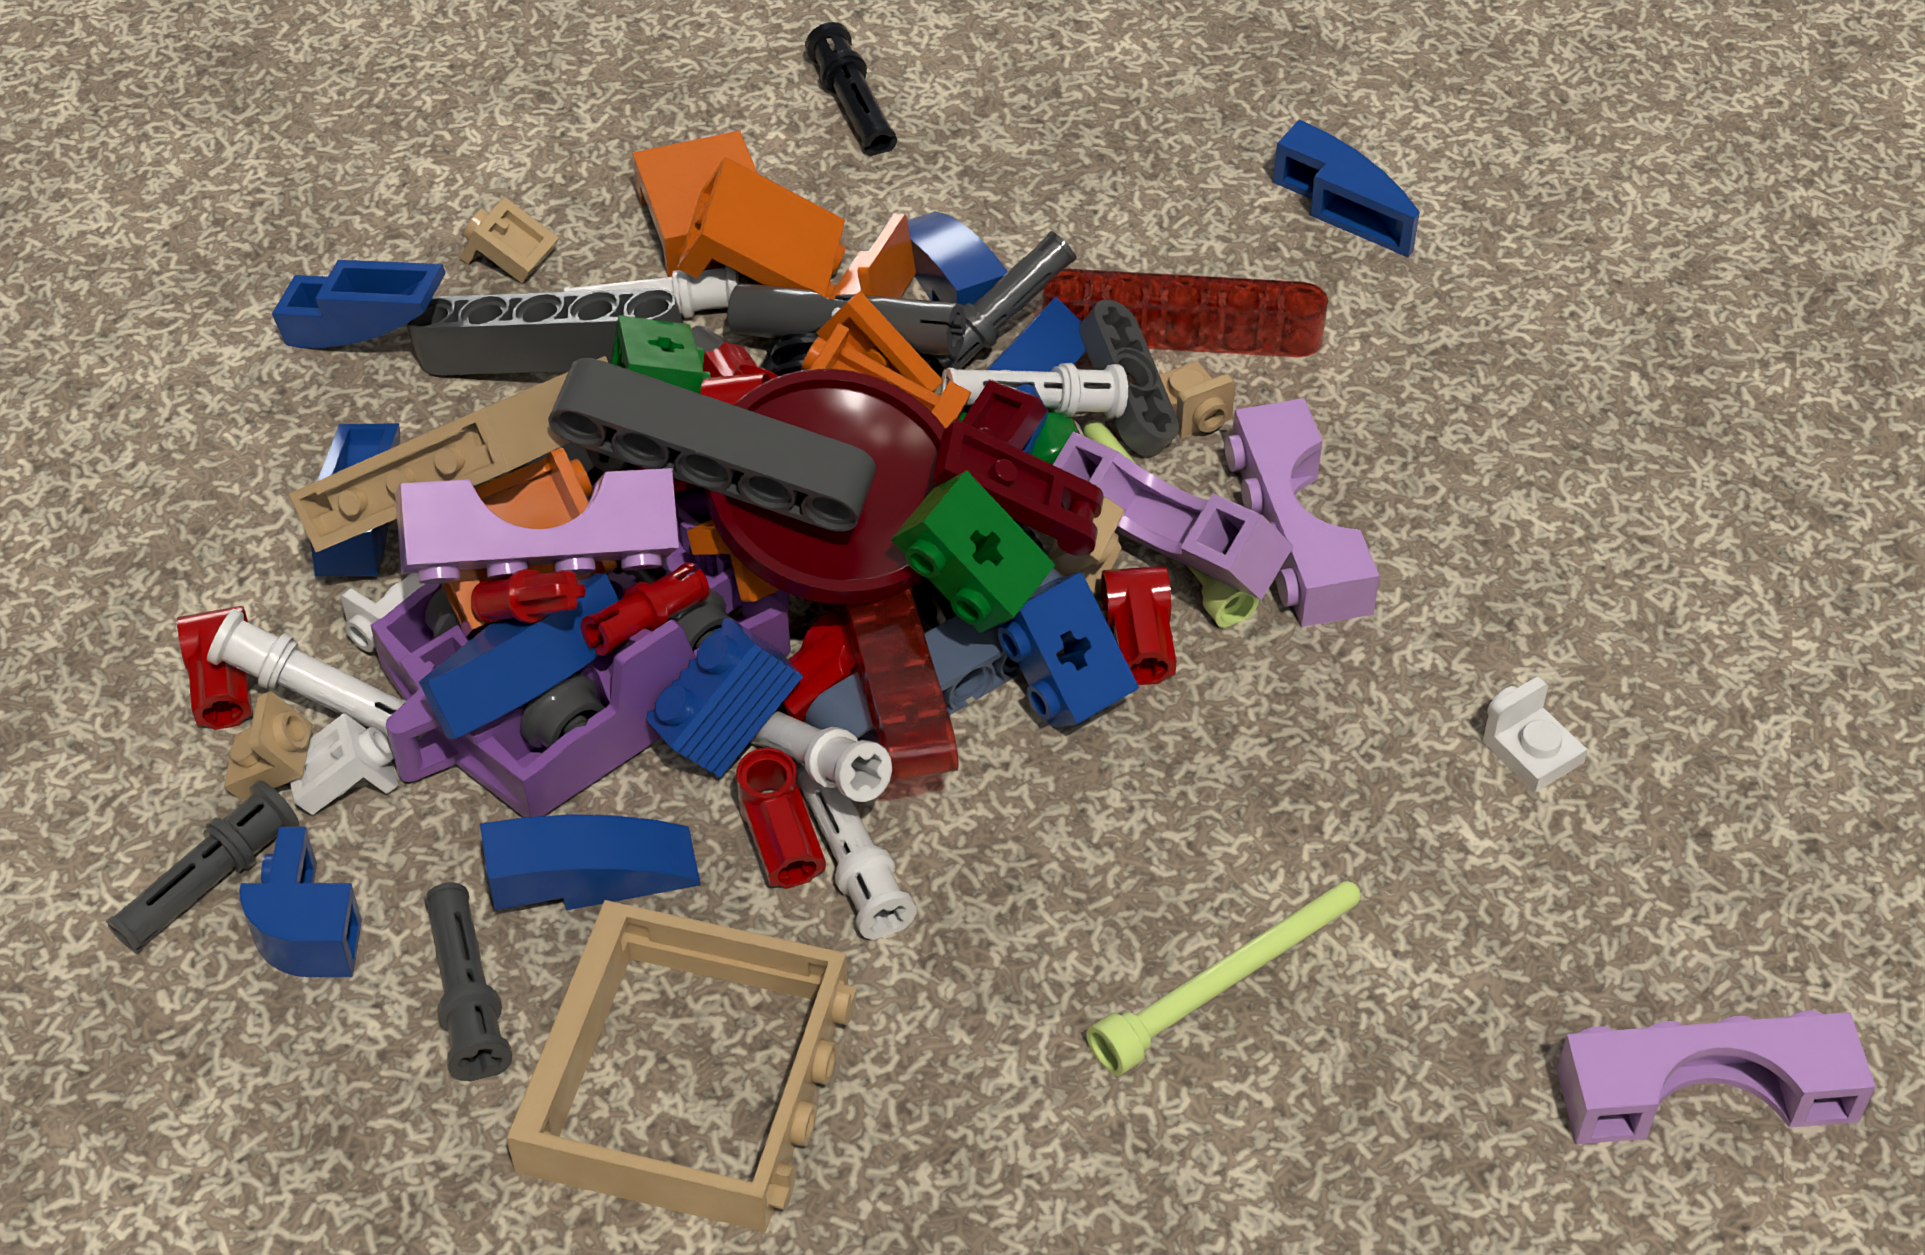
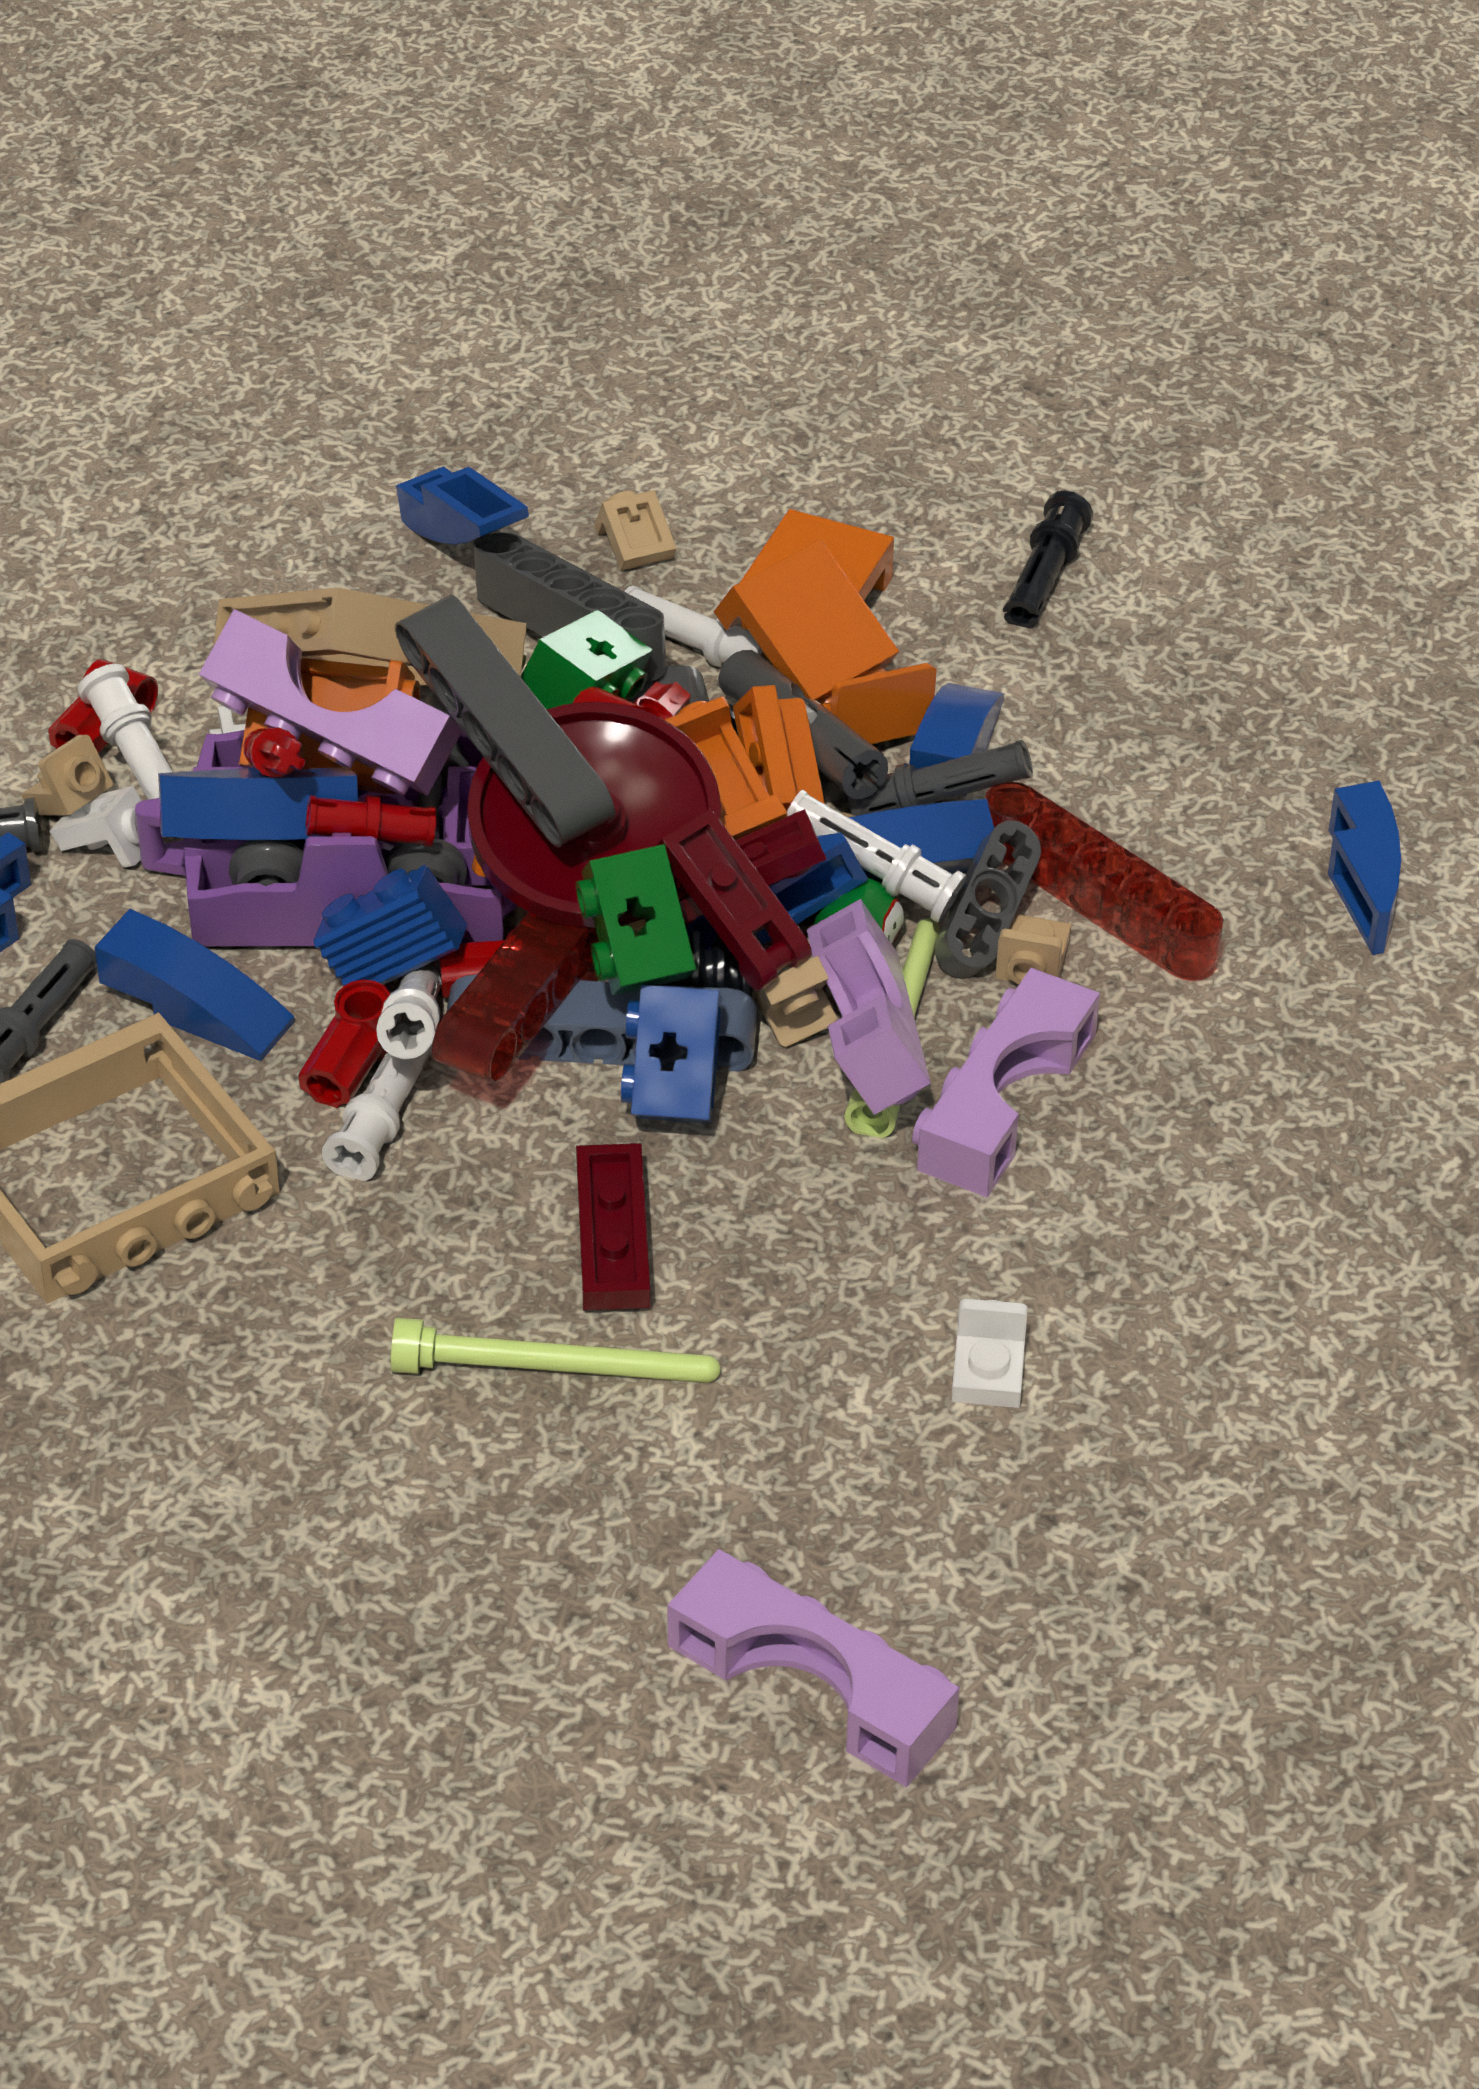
camera: 40 degrees right, 5 degrees down
(1140, 617) = (787, 1072): red piece -> none
(1154, 828) = (612, 1227): none -> dark red plate

